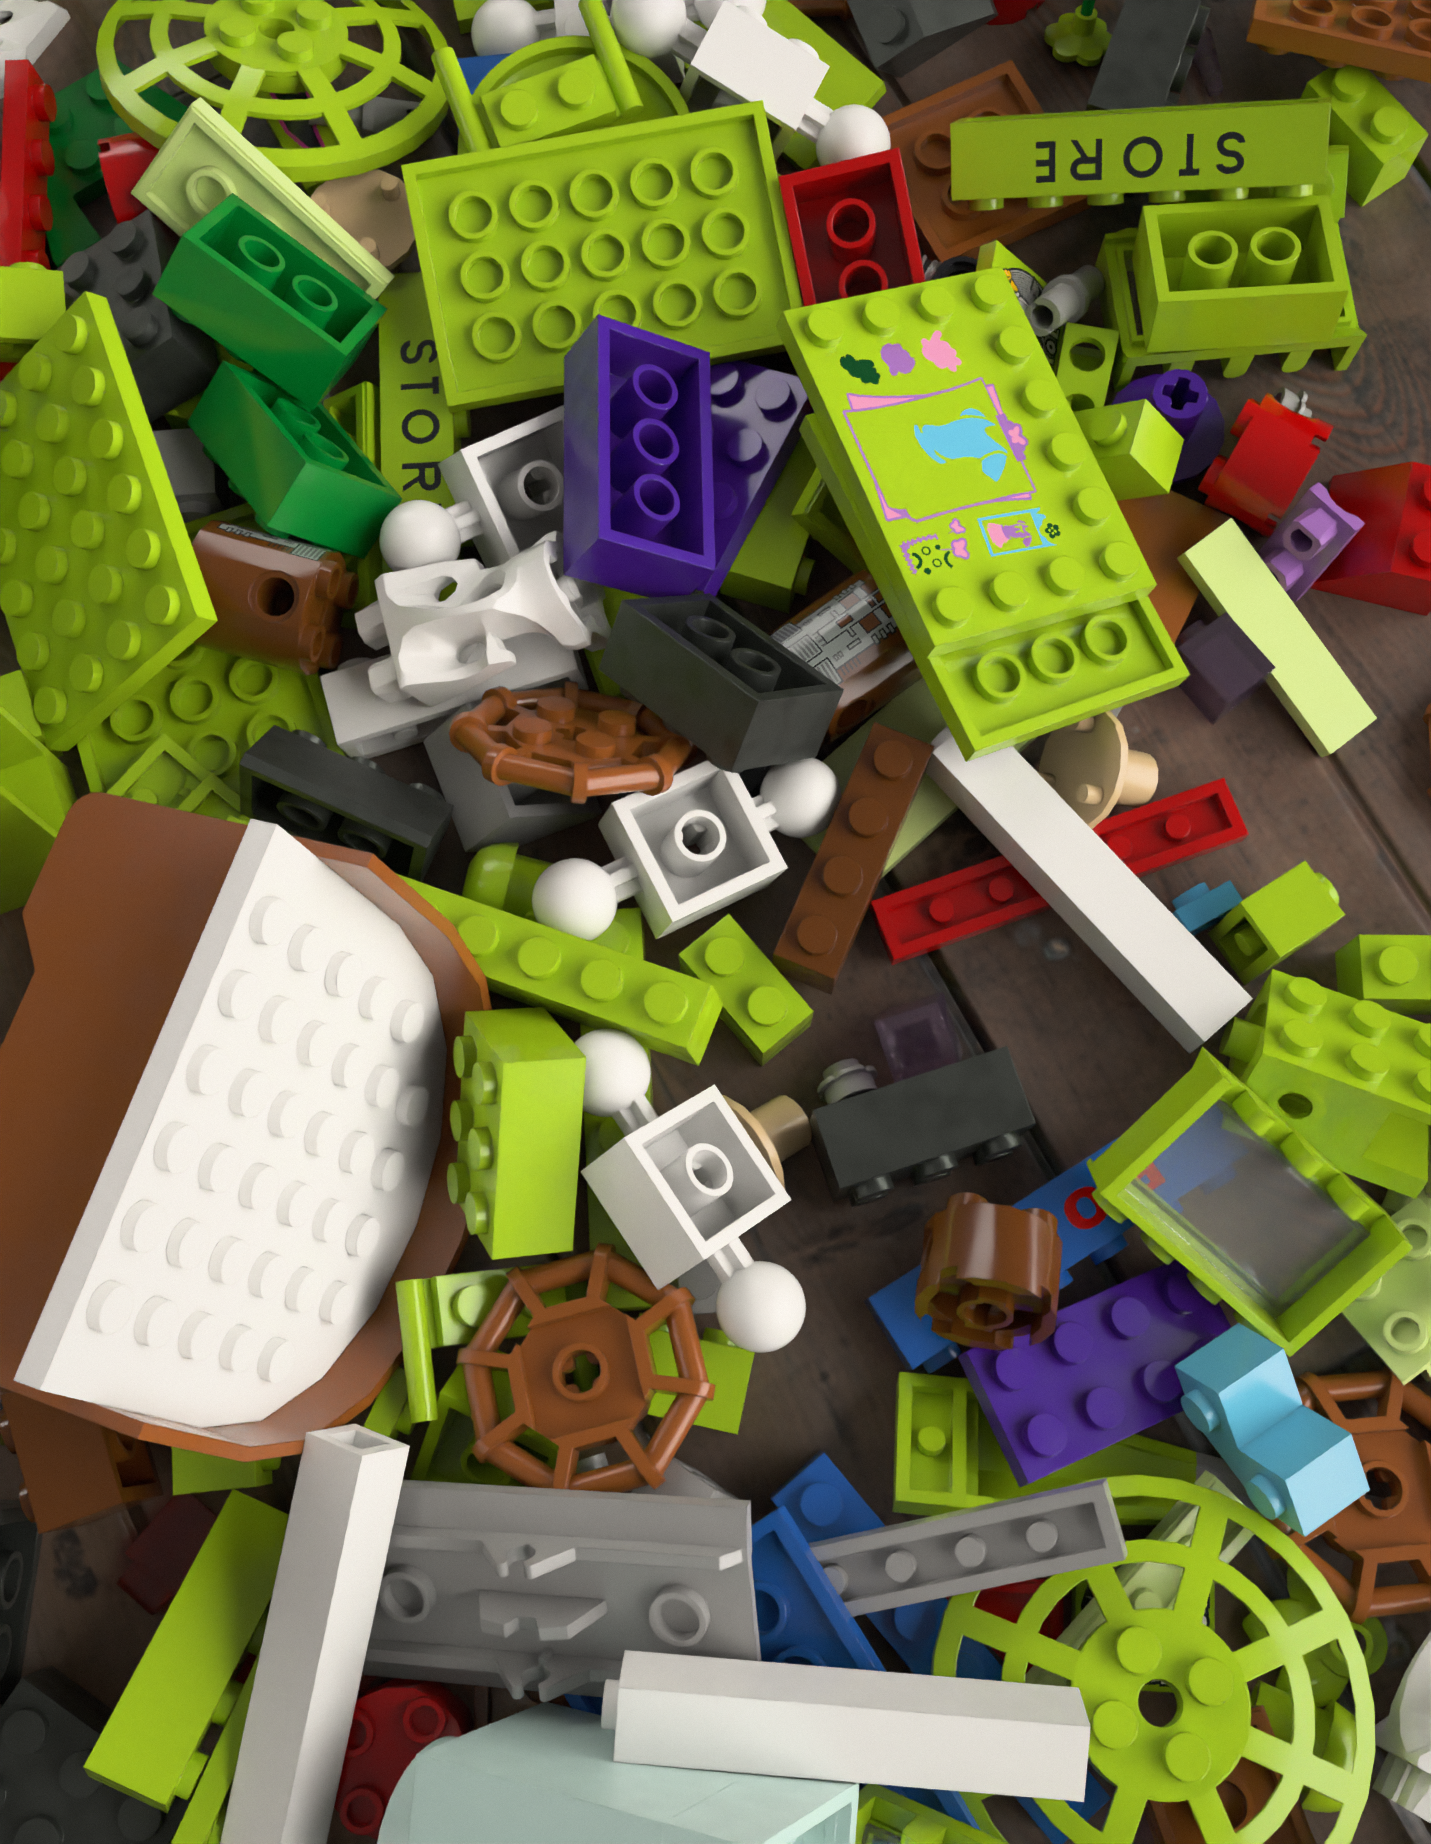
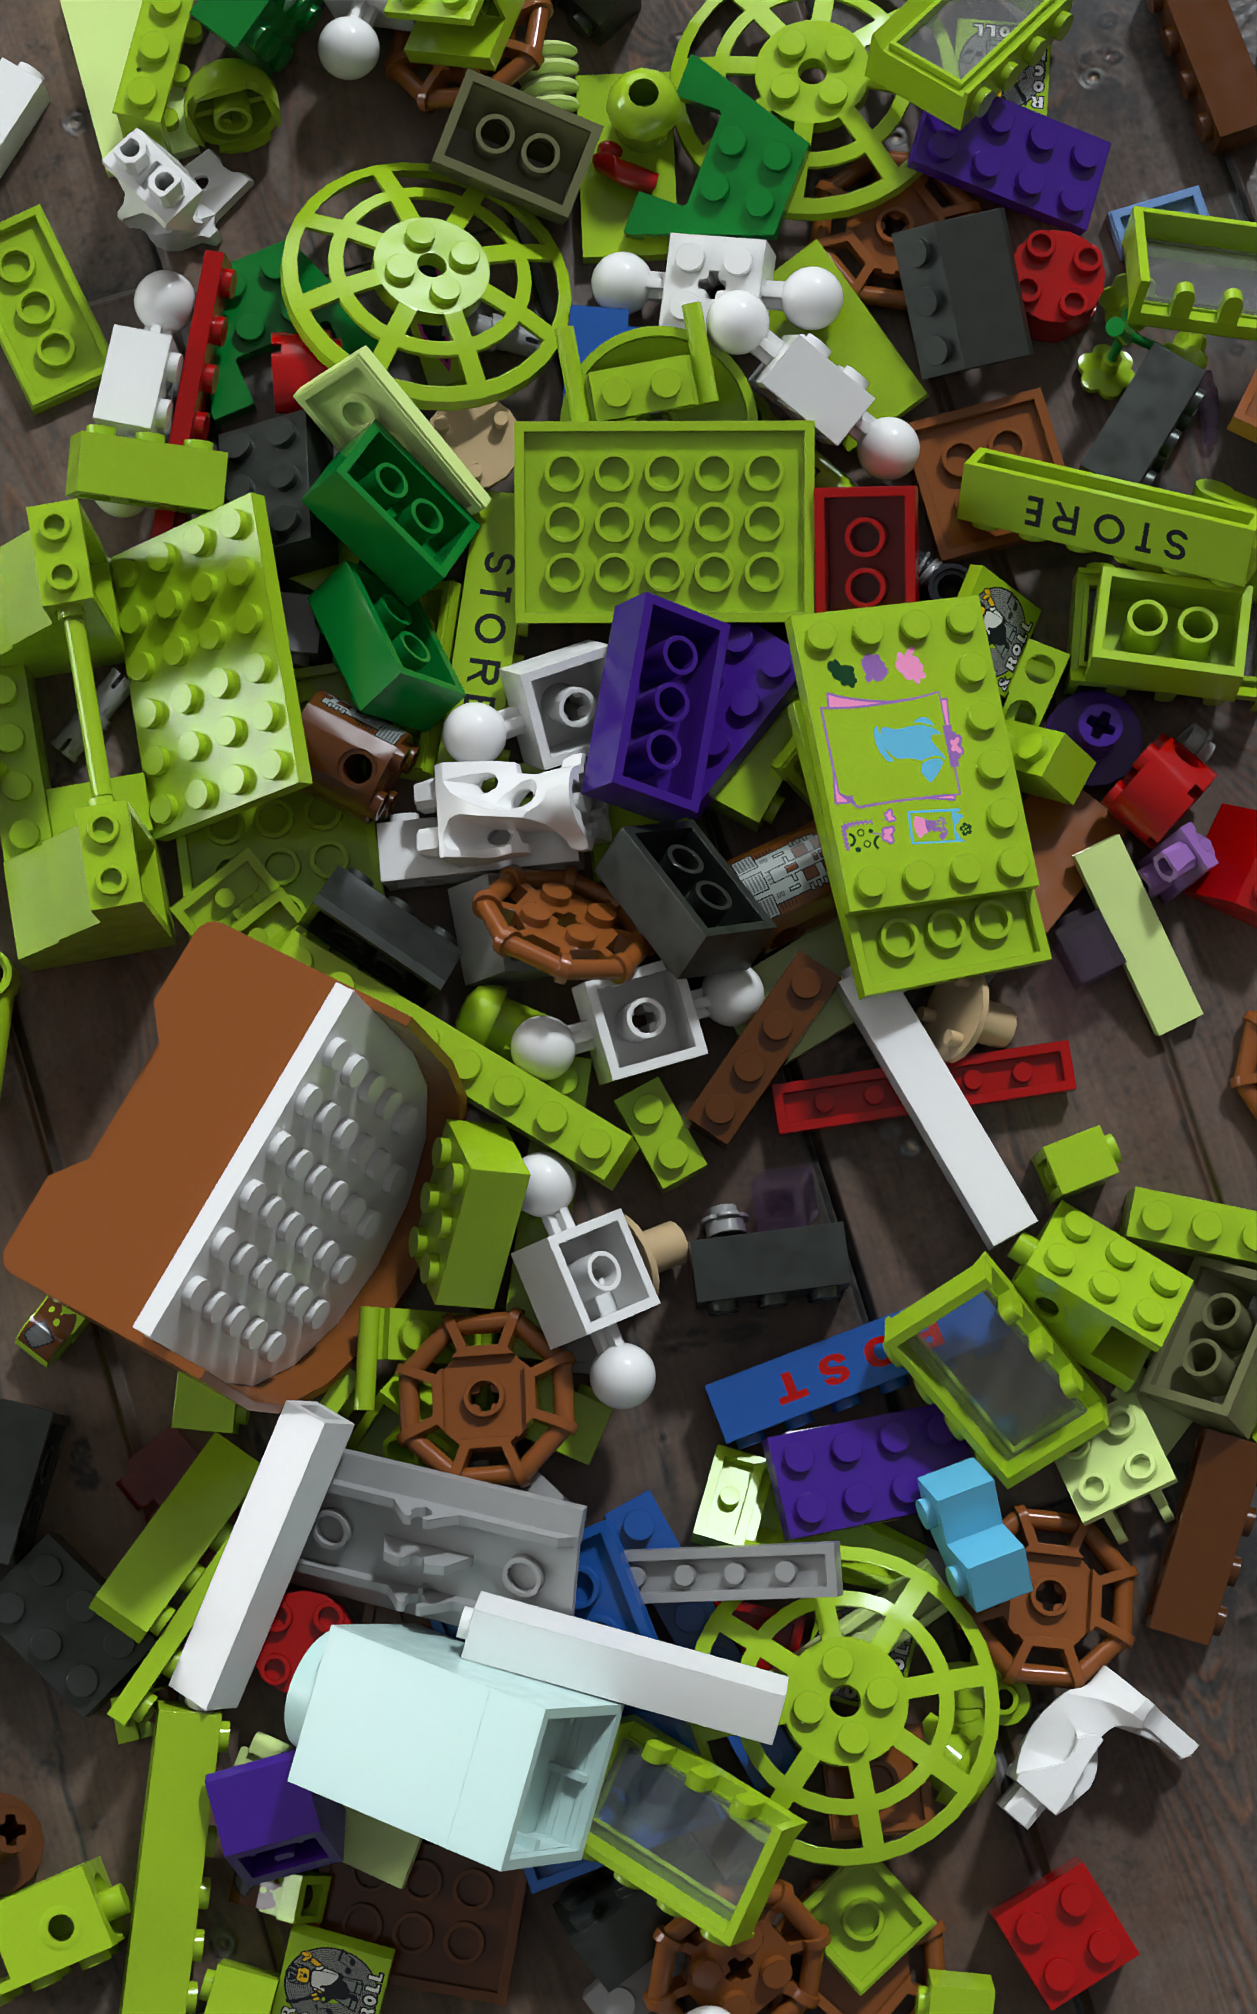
camera: 10 degrees right, 5 degrees up
(74, 1466) = (108, 1383): reddish brown brick -> none
(989, 1273) = (793, 1384): reddish brown brick -> none
(1065, 300) = (1032, 618): light grey pin -> none
(1202, 908) = (1024, 1140): dark azure plate -> none

